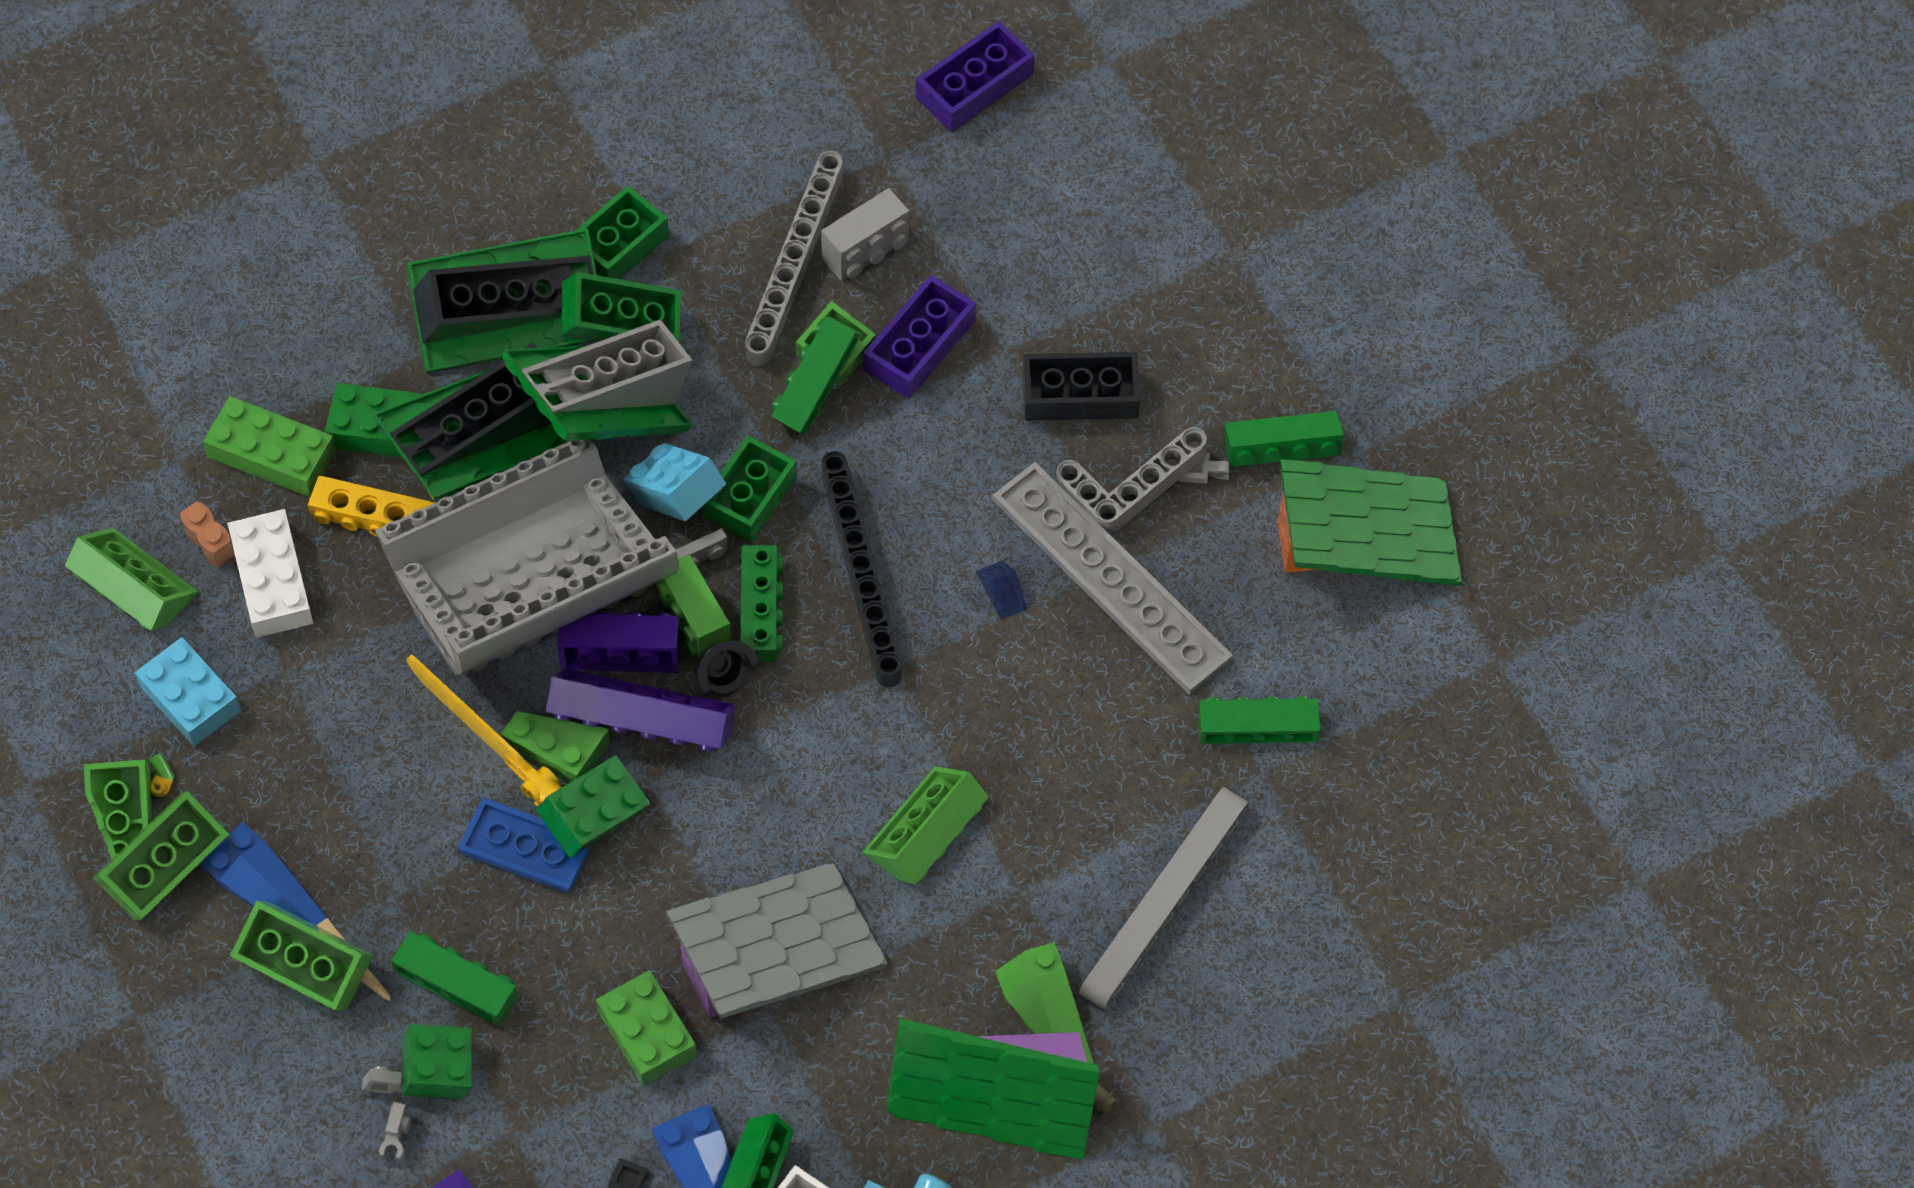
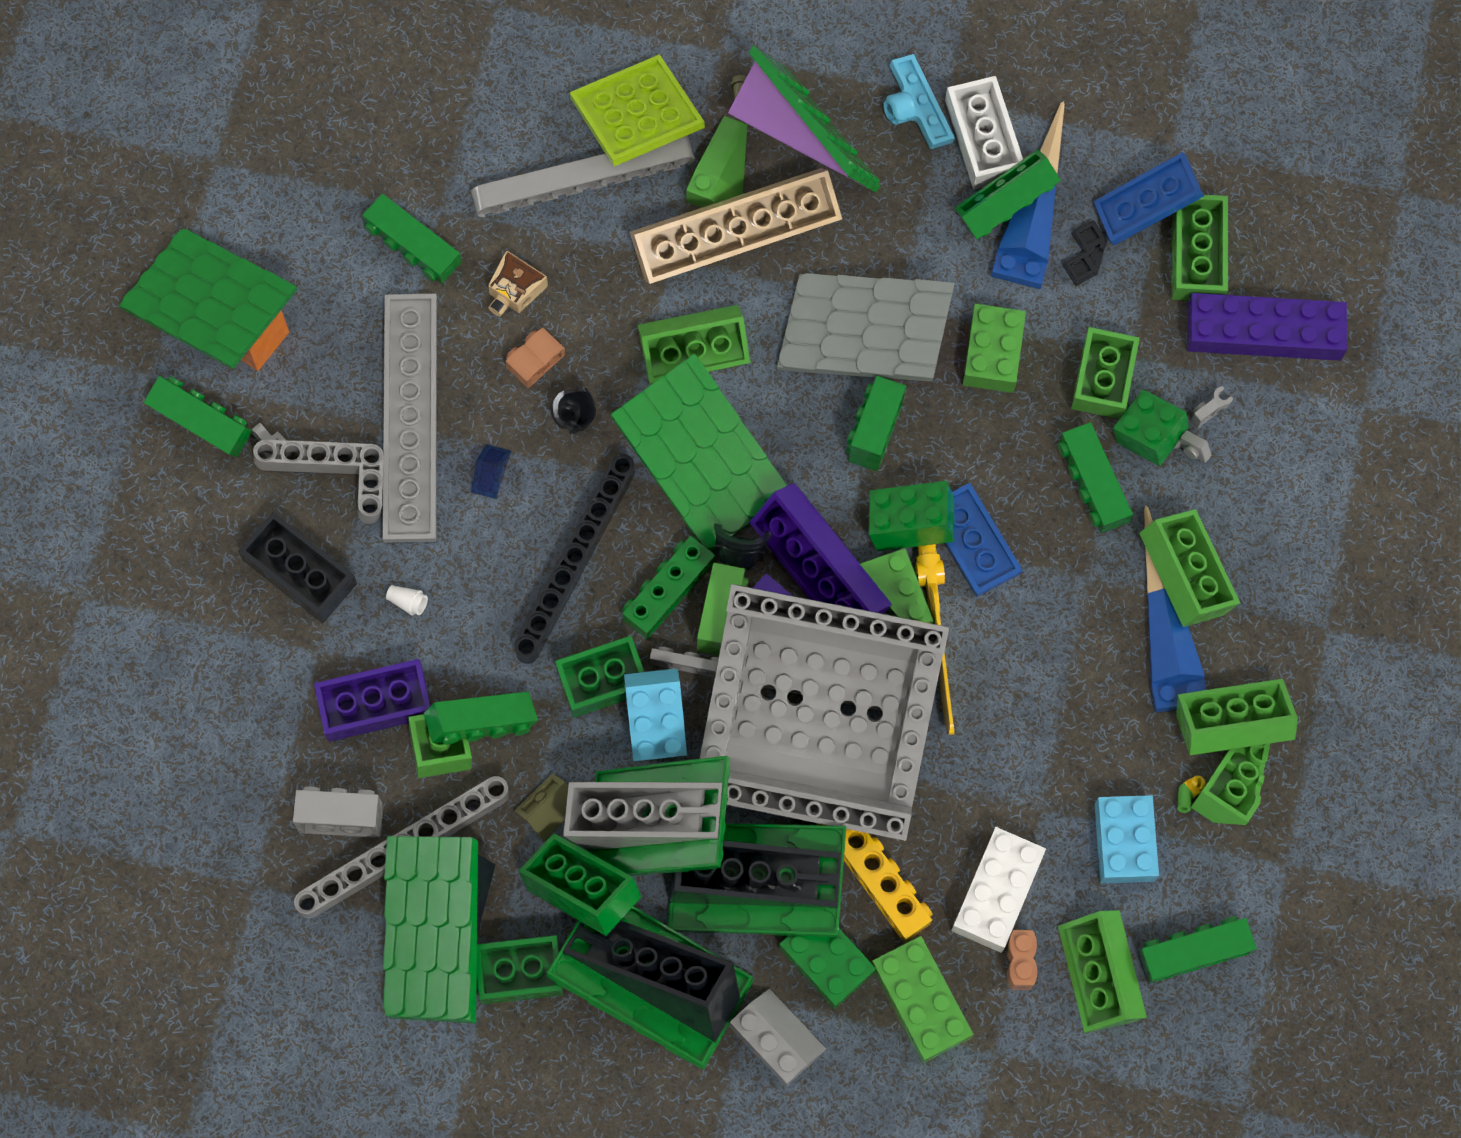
camera: 140 degrees left, 10 degrees up
(58, 647) = (1197, 950): none -> green brick
(368, 339) = (777, 1037): none -> light grey slope
(521, 1081) = (1105, 373): none -> bright green brick
(693, 858) = (875, 423): none -> green brick
(708, 370) = (545, 806): none -> olive panel
(712, 210) = (432, 927): none -> green piece
(827, 716) = (699, 451): none -> green piece
(970, 435) = (408, 599): none -> white cone
(974, 679) = (573, 409): none -> black cap
(975, 76) = (128, 890): dark purple brick -> none
(986, 936) = (736, 225): none -> tan brick
(1052, 704) = (534, 357): none -> nougat brick
(1131, 751) = (514, 285): none -> torso
(1171, 987) = (637, 110): none -> lime plate

